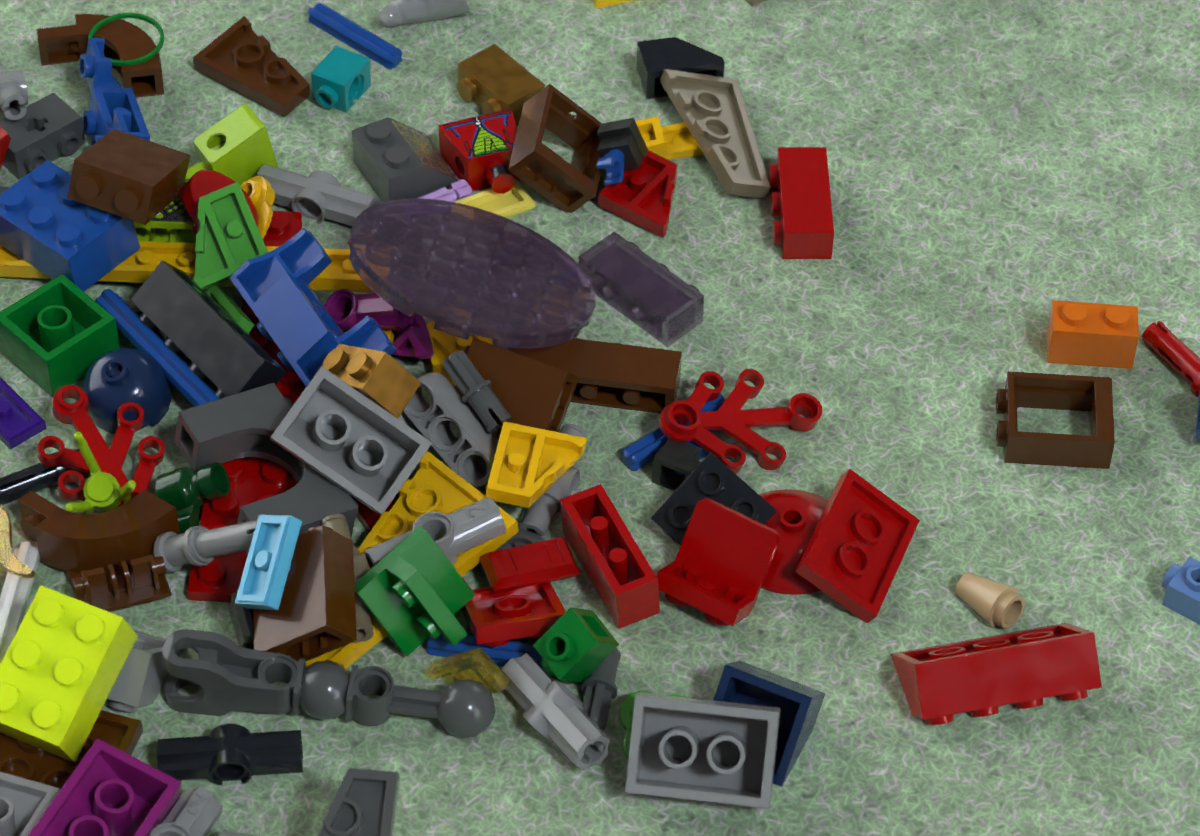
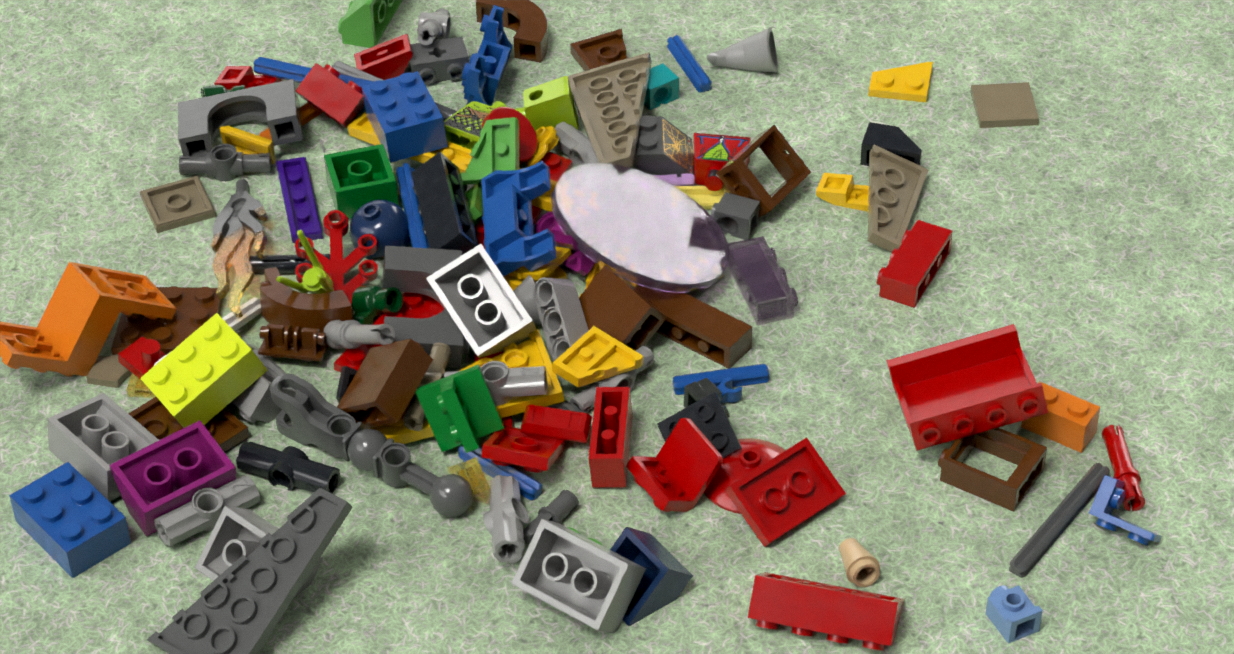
camera: 30 degrees right, 5 degrees down
(128, 176) = (452, 93): reddish brown brick -> none
(135, 16) = (530, 3): green piece -> none
(268, 562) = (368, 351): medium azure plate -> none
(321, 127) = (612, 105): none -> dark tan wing
(374, 376) = (516, 266): pearl gold brick -> none
(475, 390) = (587, 299): dark grey axle -> none
(496, 82) = (756, 115): pearl gold brick -> none
(555, 214) = (736, 215): none -> dark grey brick
(575, 645) = (542, 480): green brick -> none
(620, 148) = (806, 186): pearl dark grey piece -> none
(644, 194) = (810, 221): red wing -> none
(736, 421) = (760, 383): red plant -> none
(978, 340) = (966, 387): none -> red panel
(1167, 460) = (1058, 521): none -> dark grey axle

